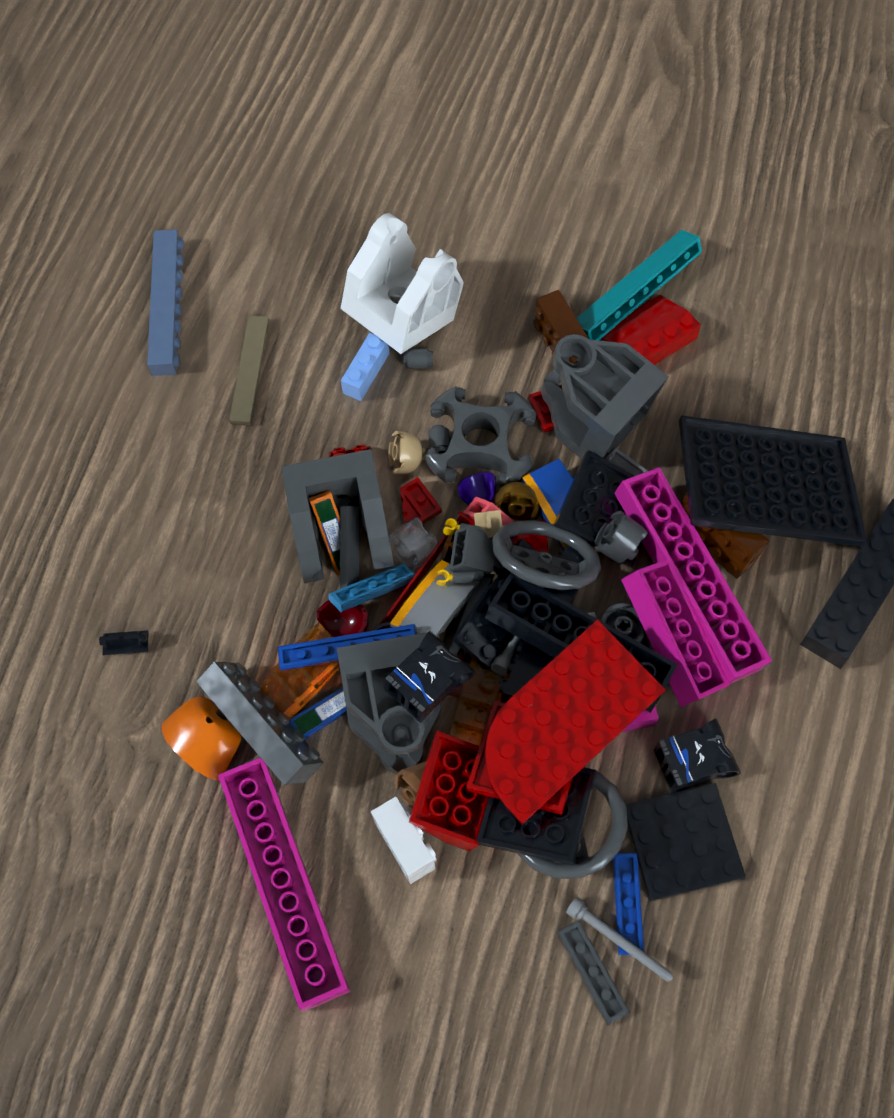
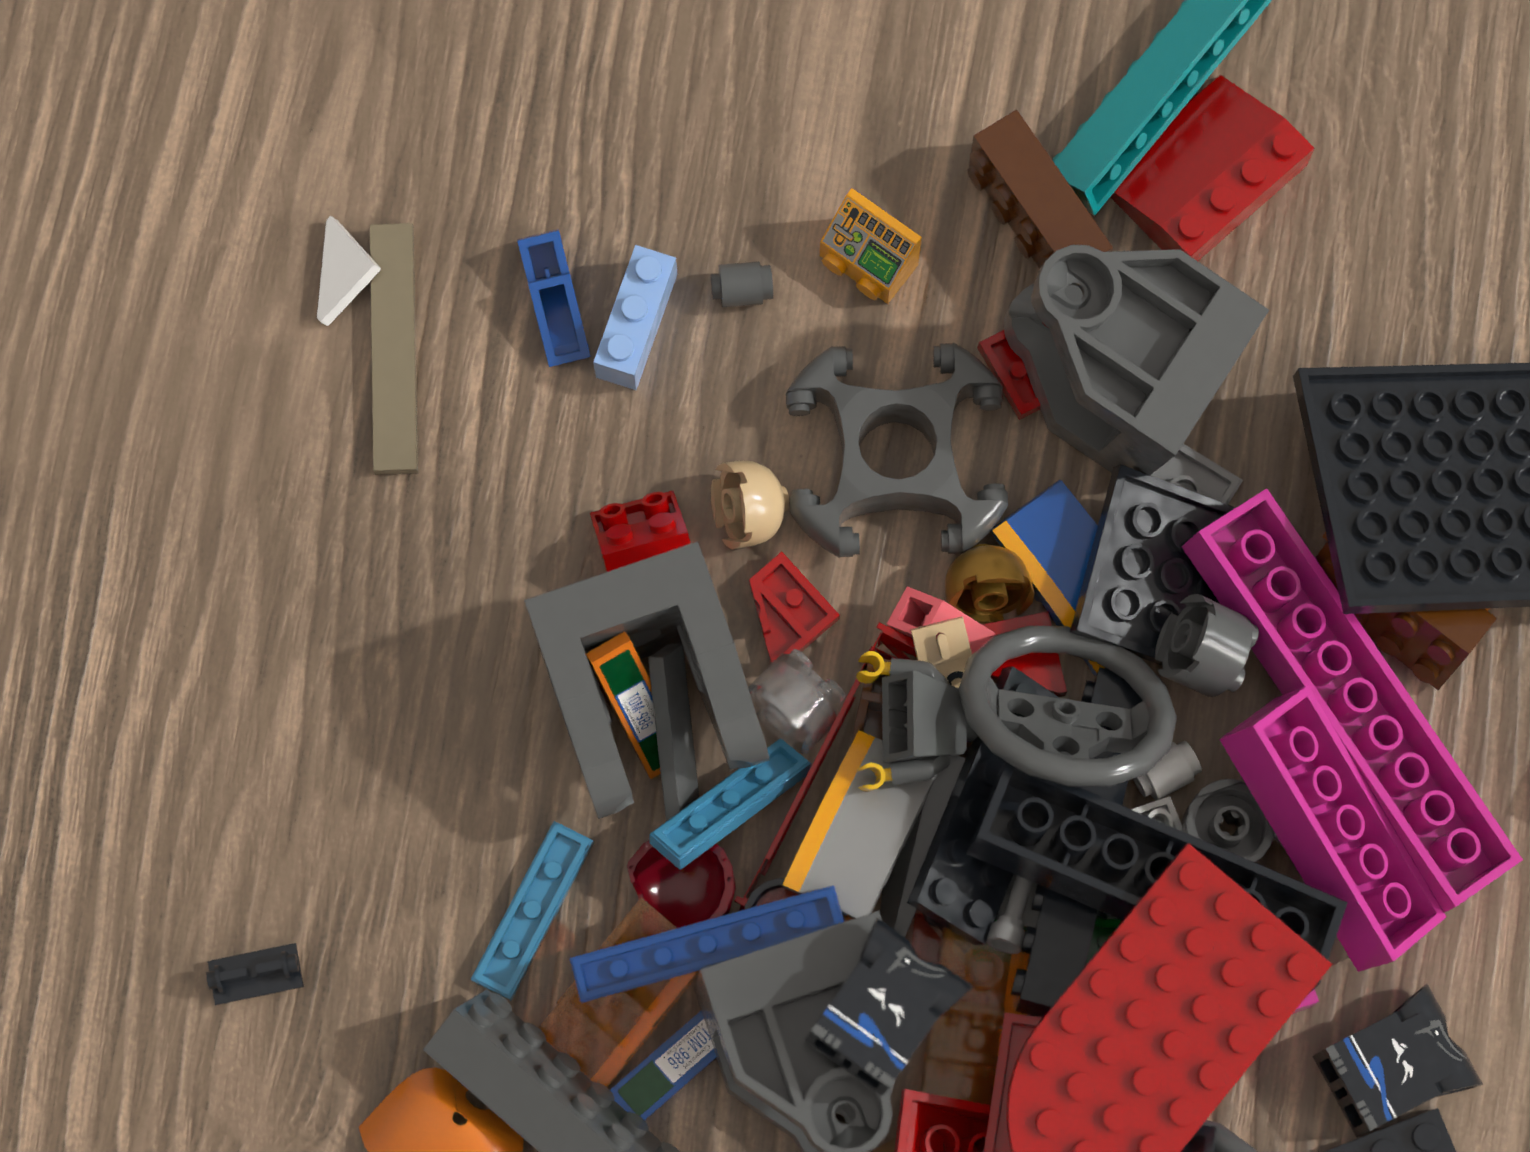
camera: 10 degrees left, 10 degrees up
(164, 303) = (187, 214): sand blue brick -> none
(232, 334) = (343, 272): none -> white tile
(267, 629) = (532, 910): none -> dark azure tile
(328, 354) = (553, 298): none -> blue slope
(385, 276) = (663, 115): white brick -> none
(439, 438) = (813, 464): dark grey brick -> none
(477, 485) = (906, 558): dark purple helmet -> none
(481, 346) = (870, 247): none -> slope
(594, 599) = (1170, 773): none -> white brick

